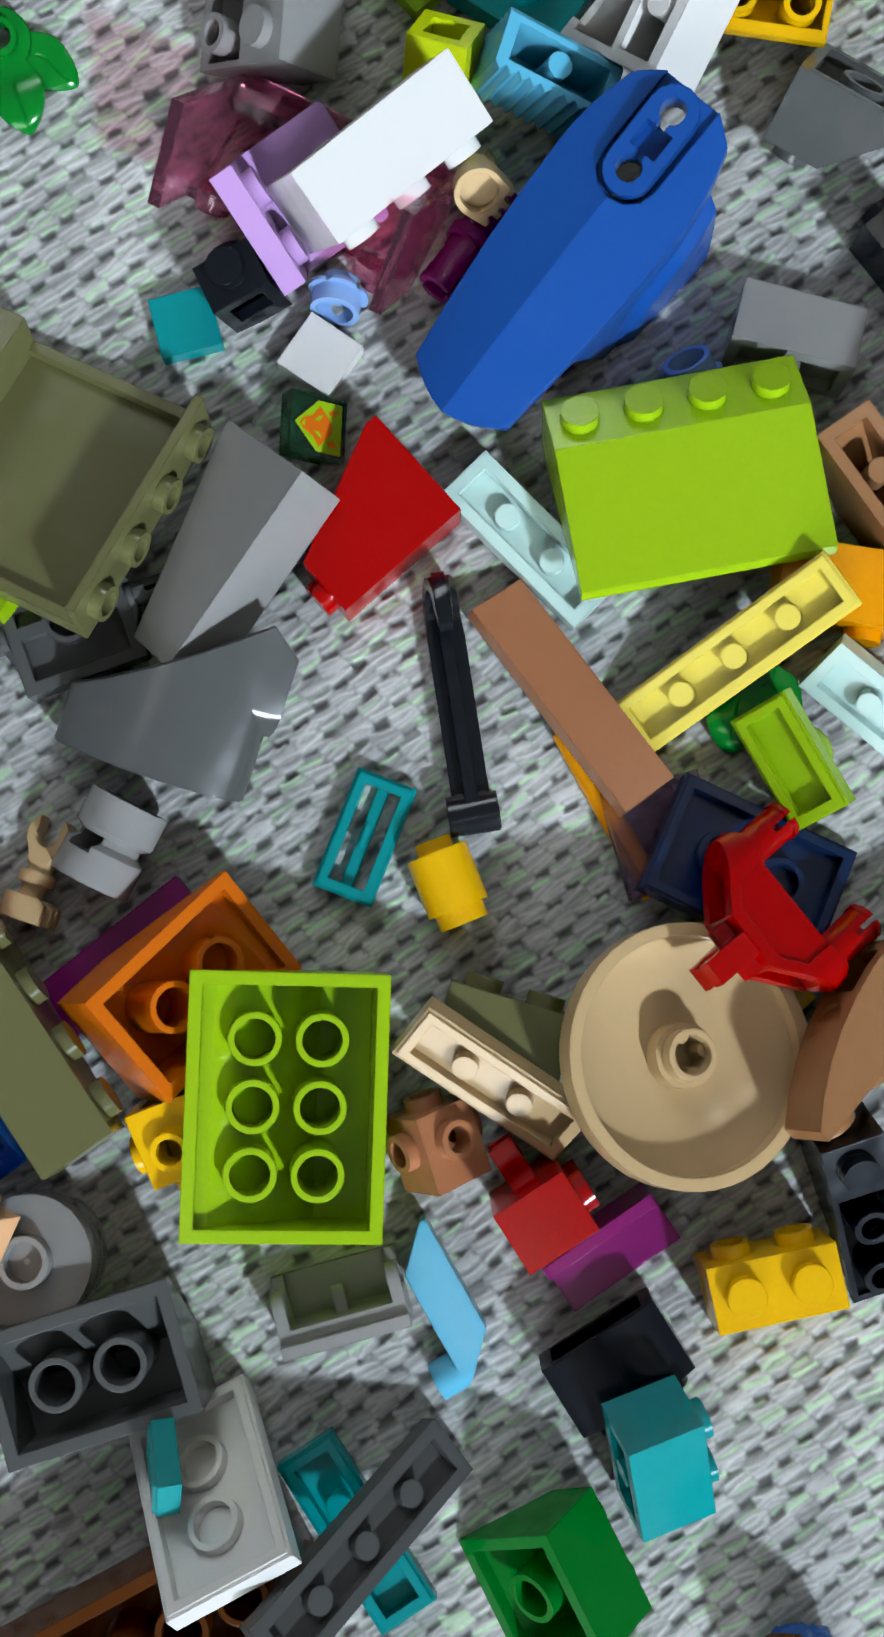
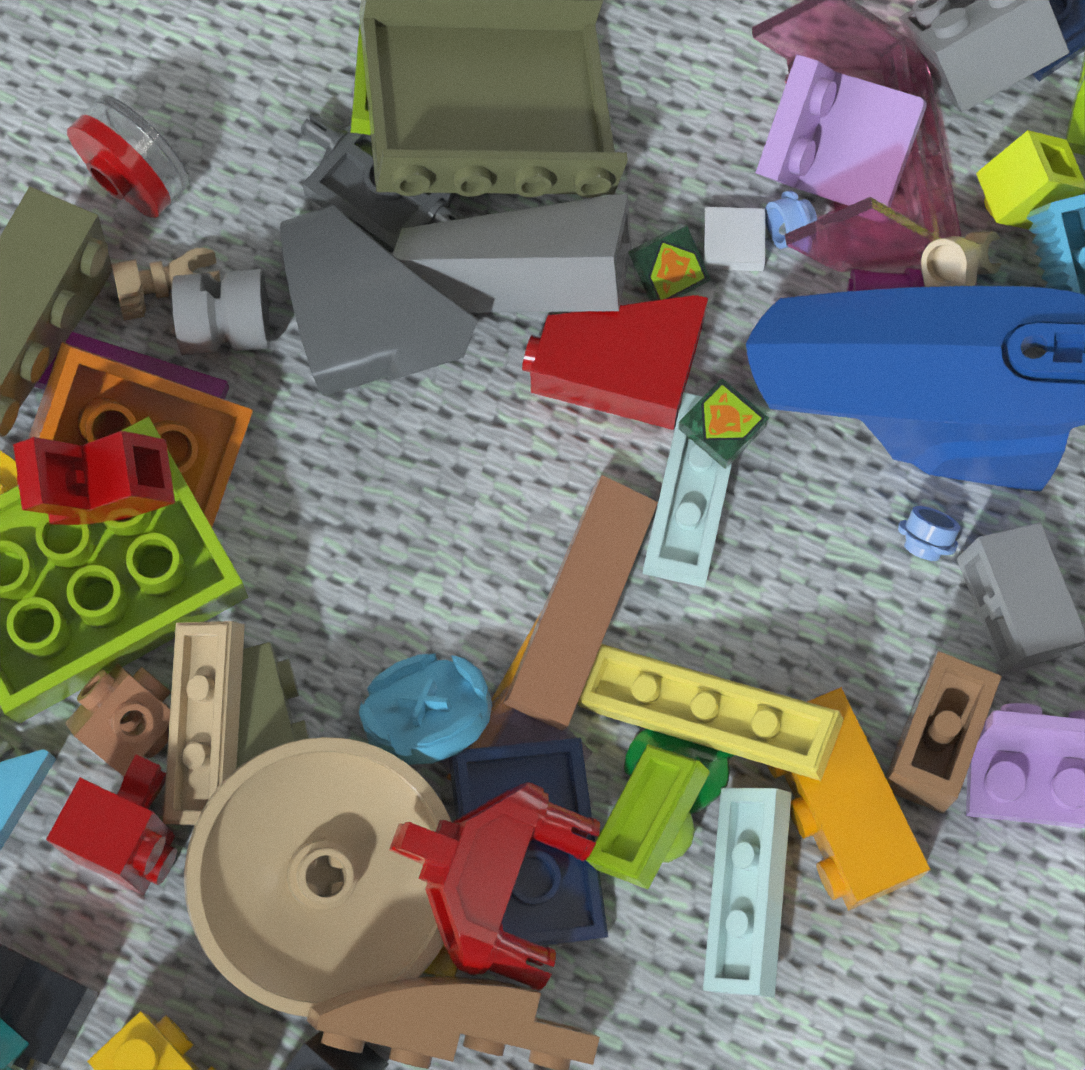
camera: 60 degrees right, 15 degrees down
(185, 326) = (687, 125): teal tile -> none
(232, 1055) = (94, 480): none -> red brick
(234, 276) = (742, 126): black brick -> none
(382, 156) = (914, 167): white wedge -> none
(384, 788) = (358, 534): teal tile -> none
(448, 882) = (356, 598): yellow brick -> none
(471, 804) = (437, 579): black piece -> none
(495, 477) = (723, 423): none -> tile
(585, 884) = (426, 708): none -> medium azure tile
(629, 1236) = (116, 931): magenta panel -> none
(688, 477) = (830, 573): lime slope -> none

